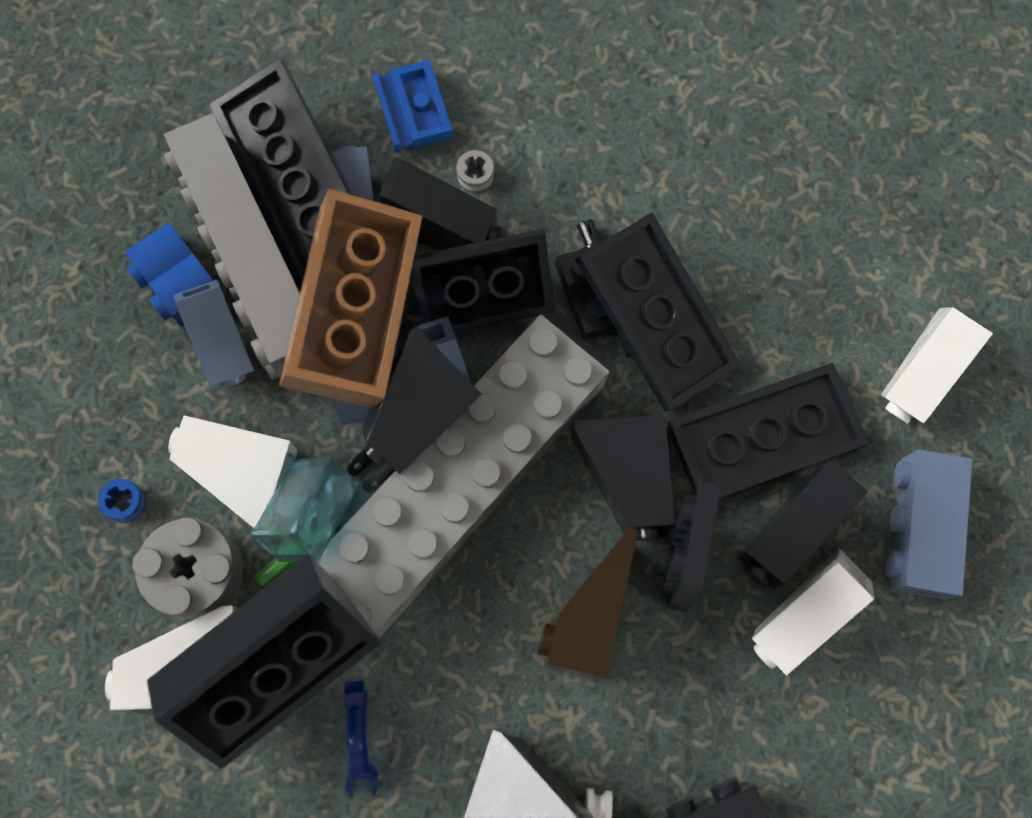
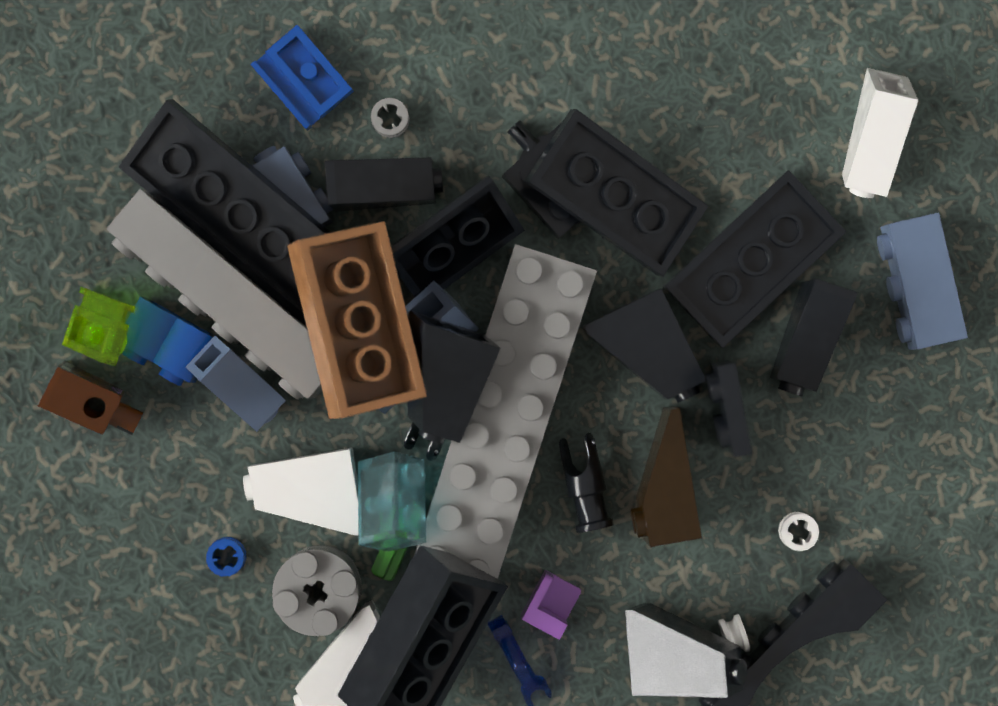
camera: 15 degrees left, 15 degrees up
(67, 290) = (69, 395): none -> reddish brown torso
(116, 233) = (98, 327): none -> clear neon green plate
(419, 691) = (551, 604): none -> medium lavender panel
(508, 586) = (586, 487): none -> black piece
(724, 729) = (810, 525): none -> white bush
(813, 612) = (850, 399): white slope -> none

